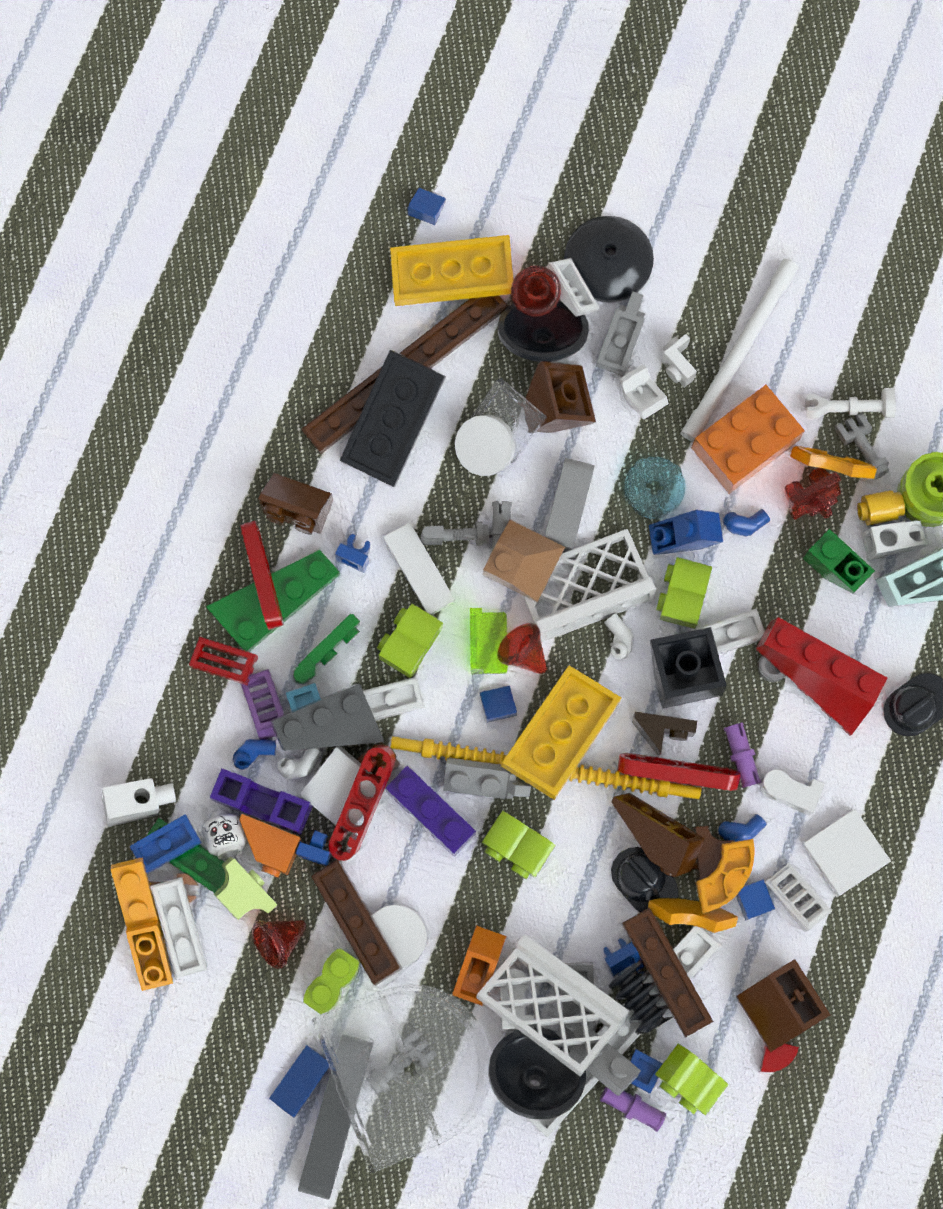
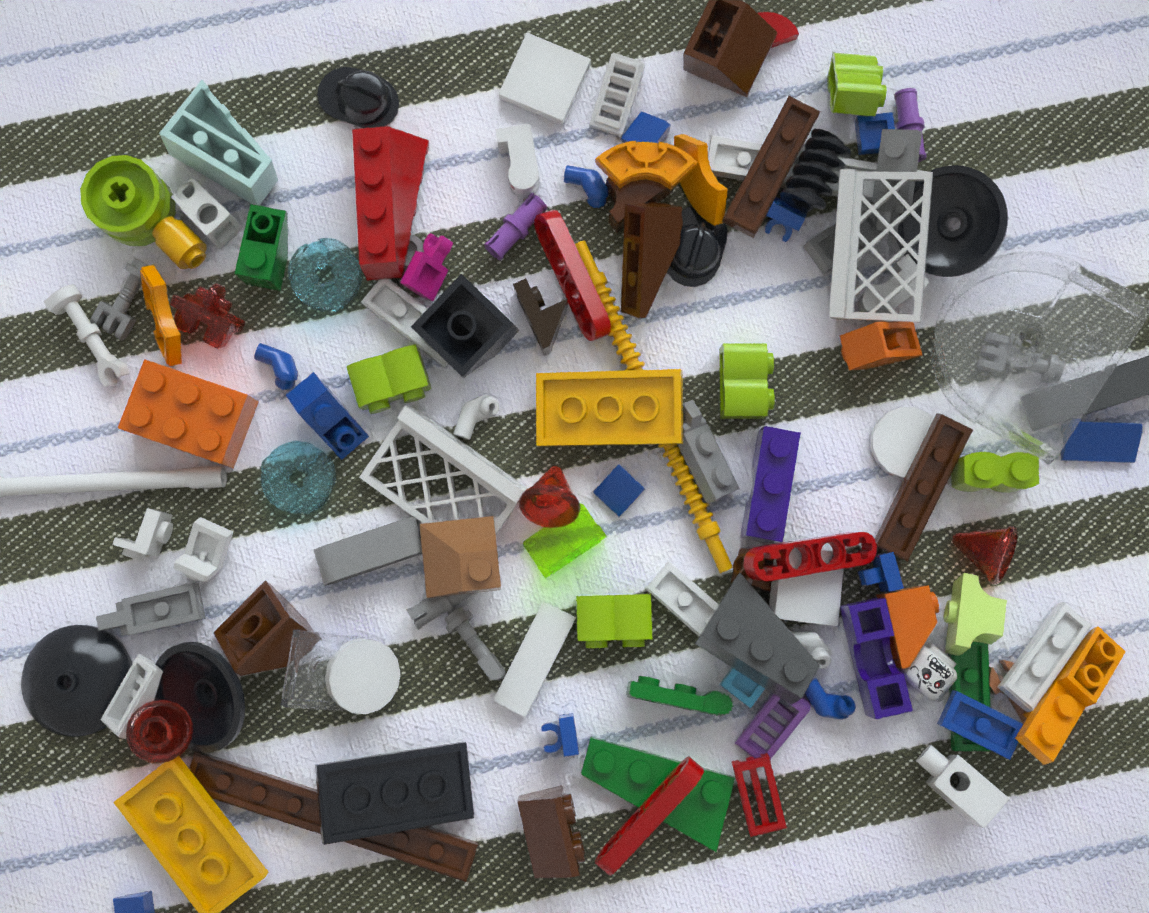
camera: 120 degrees left, 5 degrees up
(748, 668) = (425, 269): none -> dark pink plate
(796, 579) = (318, 255): none -> clear light blue plate

